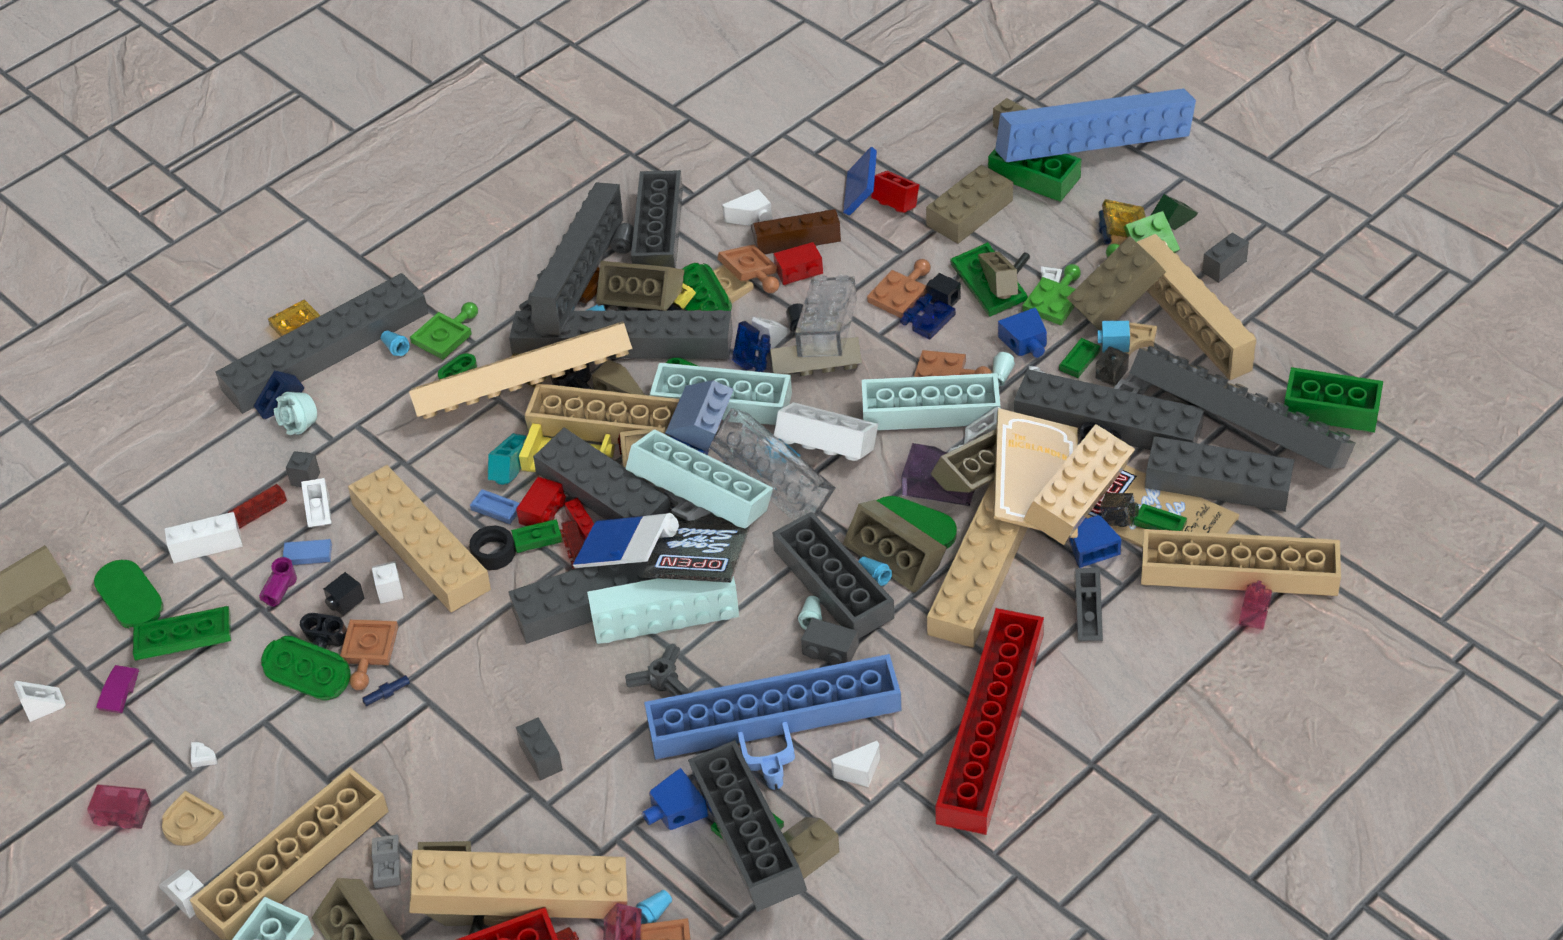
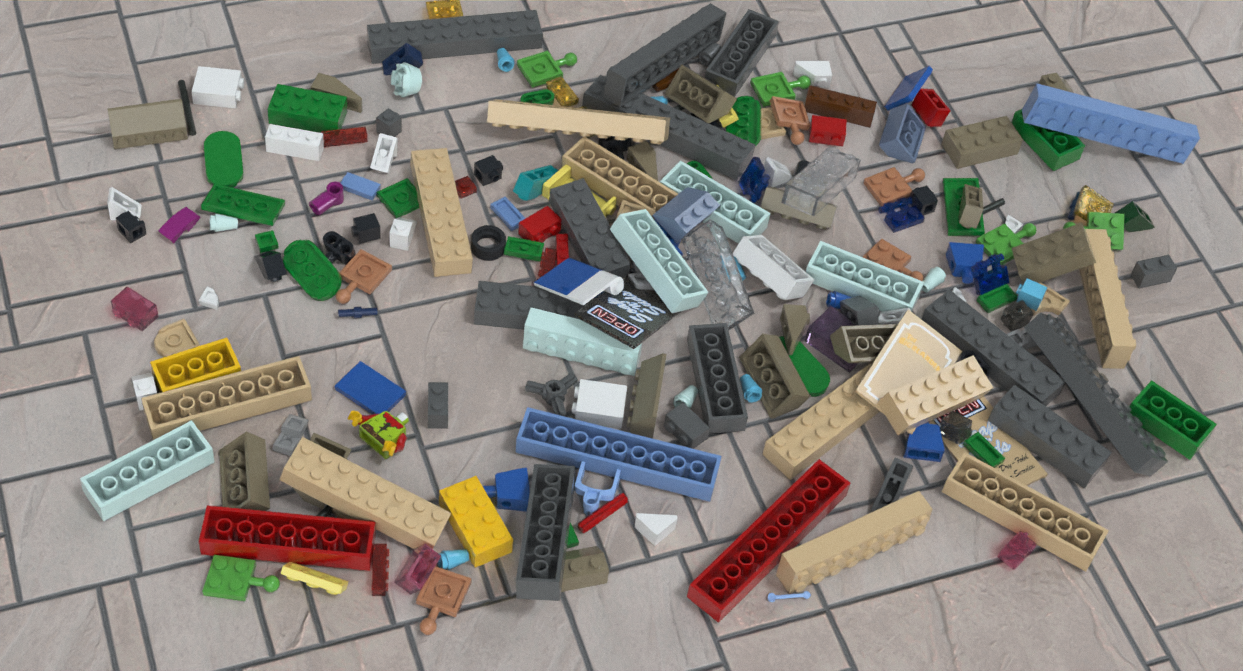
camera: 15 degrees right, 5 degrees up
(38, 542) = (187, 108): none -> pearl dark grey bar
(61, 717) = (130, 226): none -> black brick
(76, 516) = (217, 87): none -> white brick
(168, 664) = (222, 222): none -> light aqua cone
(196, 494) = (306, 109): none -> green brick
(218, 462) = (332, 85): none -> dark tan slope
(231, 835) = (195, 365): none -> yellow brick
(233, 661) = (266, 241): none -> green plate
(254, 684) = (271, 265): none -> black slope
(361, 545) = (399, 198): none -> green tile
(431, 498) = (465, 187): none -> clear red plate
(446, 469) = (488, 170): none -> black brick
(450, 769) = (370, 389): none -> blue tile
(482, 349) = (562, 92): none -> clear yellow plate
(492, 807) = (382, 431): none -> torso
(657, 853) = (476, 521): none -> yellow brick
(714, 239) = (777, 86): none -> bright green plate
(720, 661) = (600, 403): none -> white brick
(768, 628) = (647, 396): none -> dark tan slope
(791, 779) = (602, 513): none -> red axle
(880, 232) = (902, 134): none -> sand blue slope
(881, 480) = (793, 324): none -> dark tan slope
(916, 434) = (834, 299): none -> blue cone
(946, 434) = (860, 311): none -> dark grey brick
(1027, 780) = (772, 597): none -> light blue hinge
(1064, 339) = (990, 279): none -> clear blue plate
(1082, 679) = (853, 542): none -> tan brick

